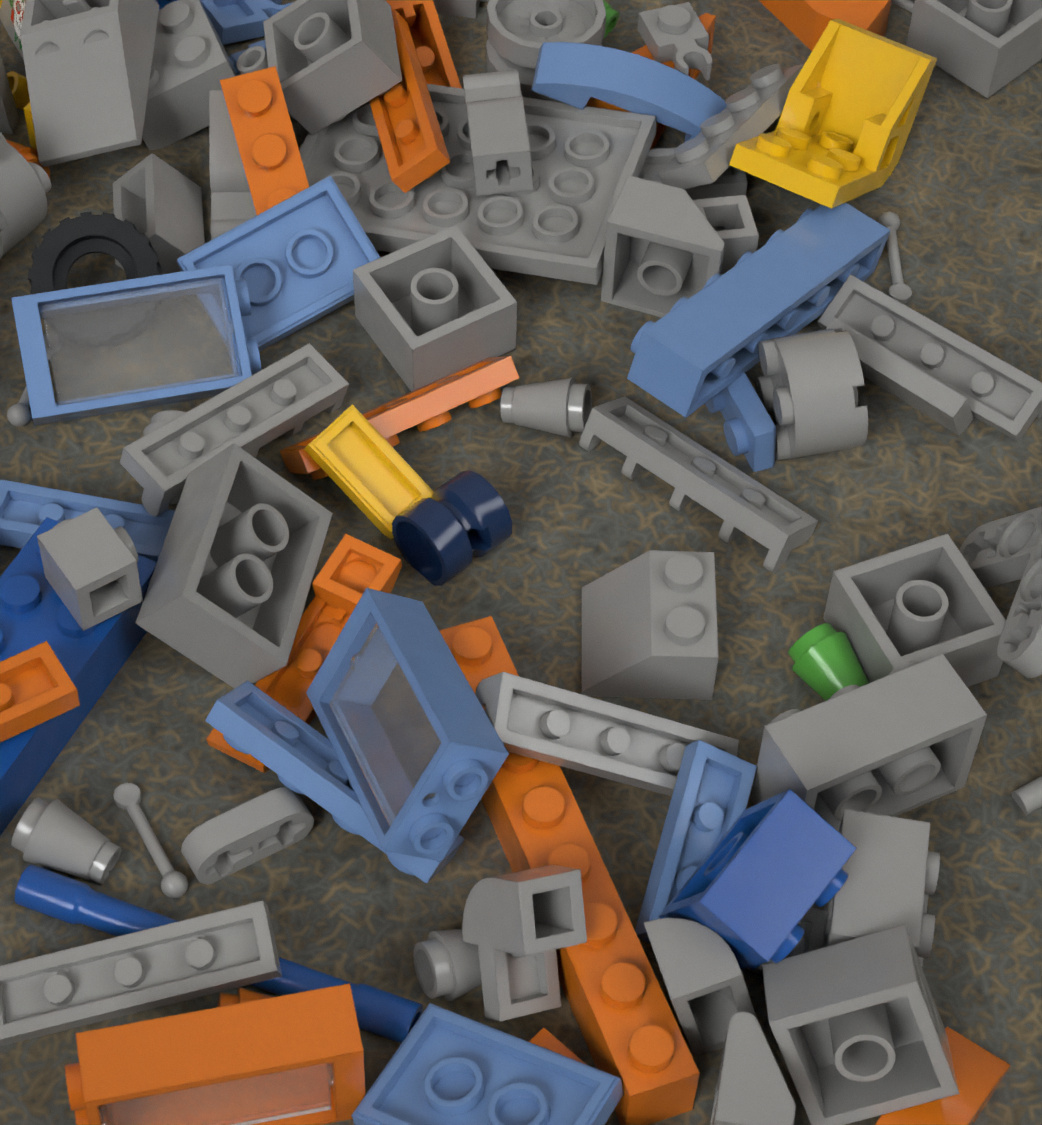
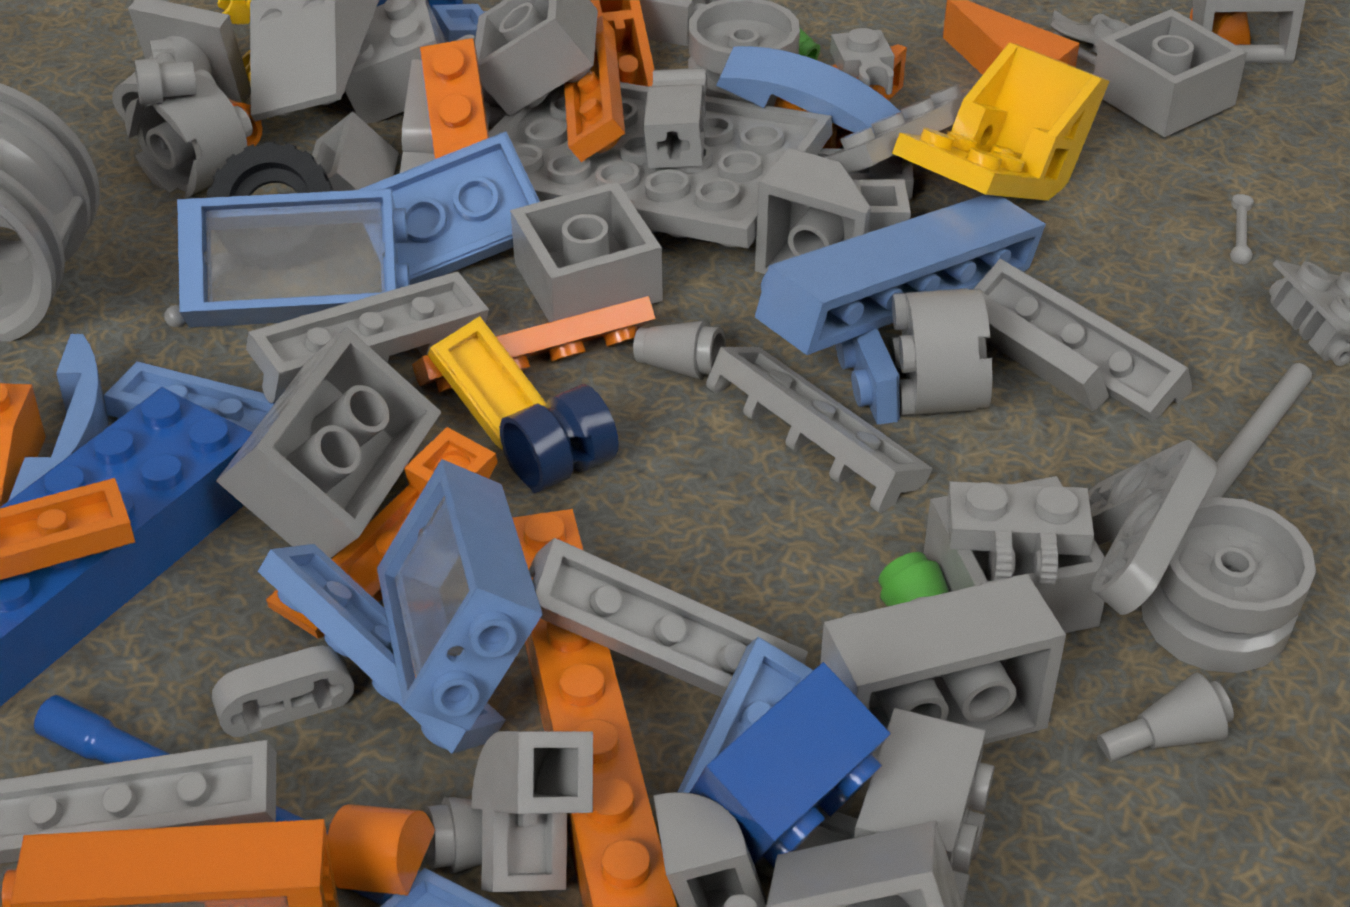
camera: 10 degrees right, 10 degrees down
(64, 841) = (97, 678): light grey cone -> none
(91, 567) = (181, 421): light grey brick -> none
(127, 797) = (199, 731): light grey hinge -> none
(391, 992) = (378, 847): none -> orange brick
(651, 628) = (743, 543): light grey slope -> none
(898, 290) = (1050, 232): light grey hinge -> none
(920, 590) = (1021, 521): none -> light grey hinge

